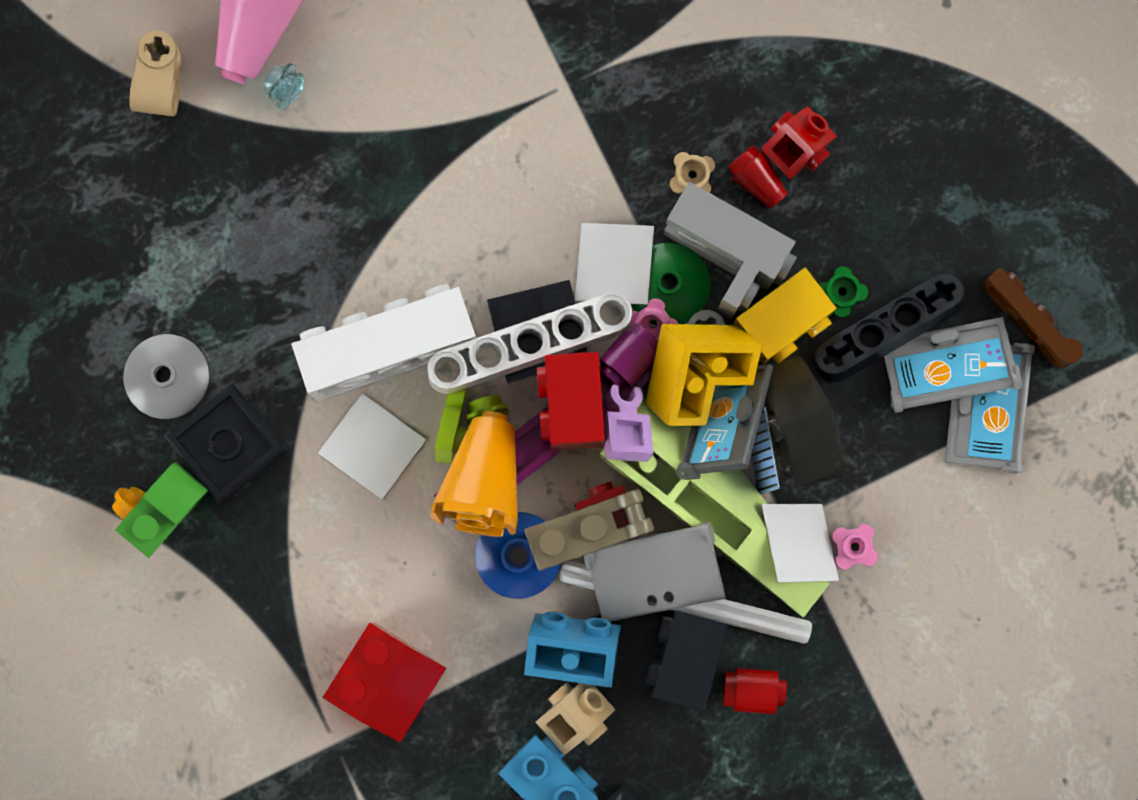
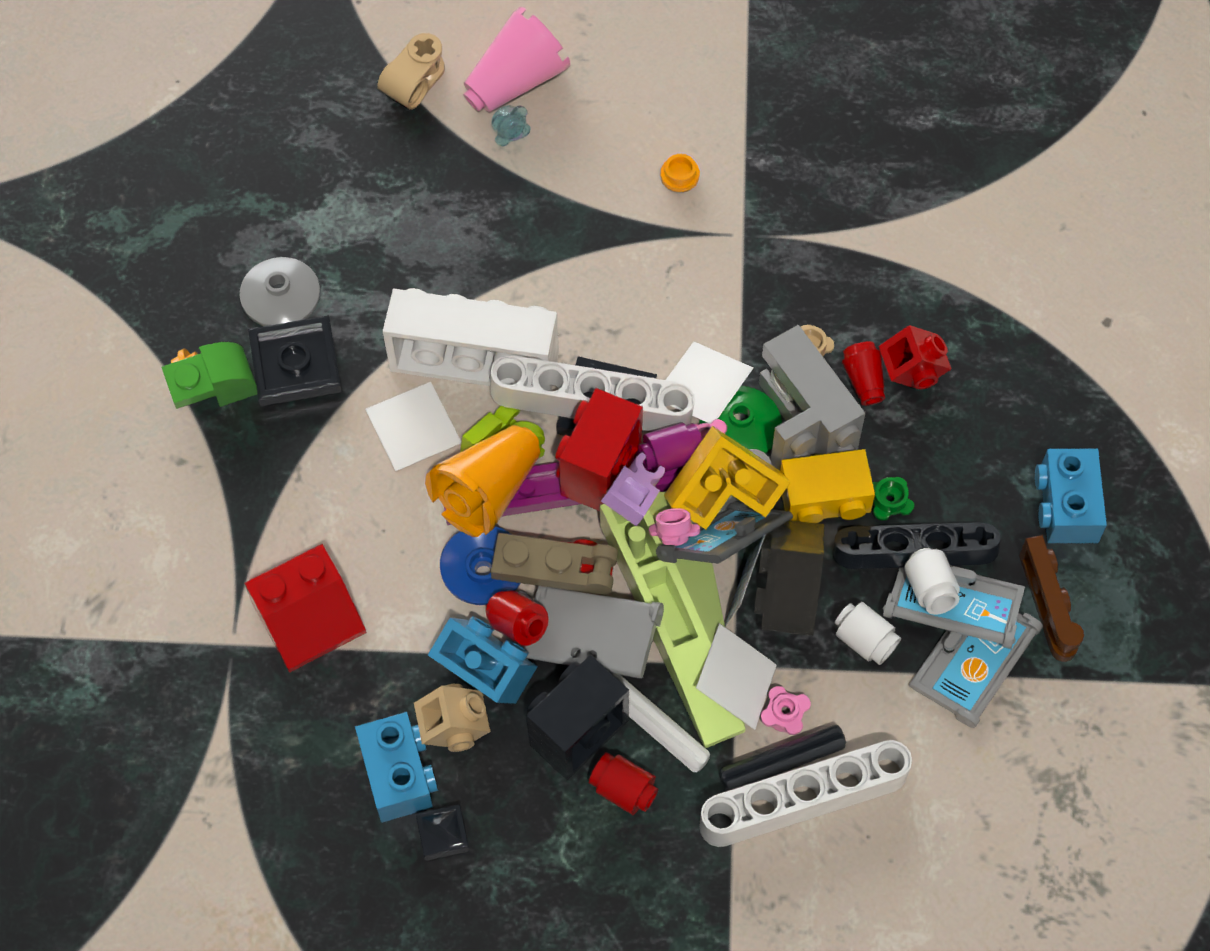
camera: 30 degrees right, 20 degrees down
(475, 52) = (680, 173): none -> light orange plate
(582, 596) = (517, 617): none -> red brick
(674, 438) = (674, 527): none -> bright pink plate
(874, 591) = (783, 758): none -> black axle
(889, 437) = (866, 632): none -> white brick
(926, 362) = (932, 580): none -> white brick
(932, 609) = (818, 777): none -> white beam
(1002, 206) = (1071, 496): none -> dark azure brick

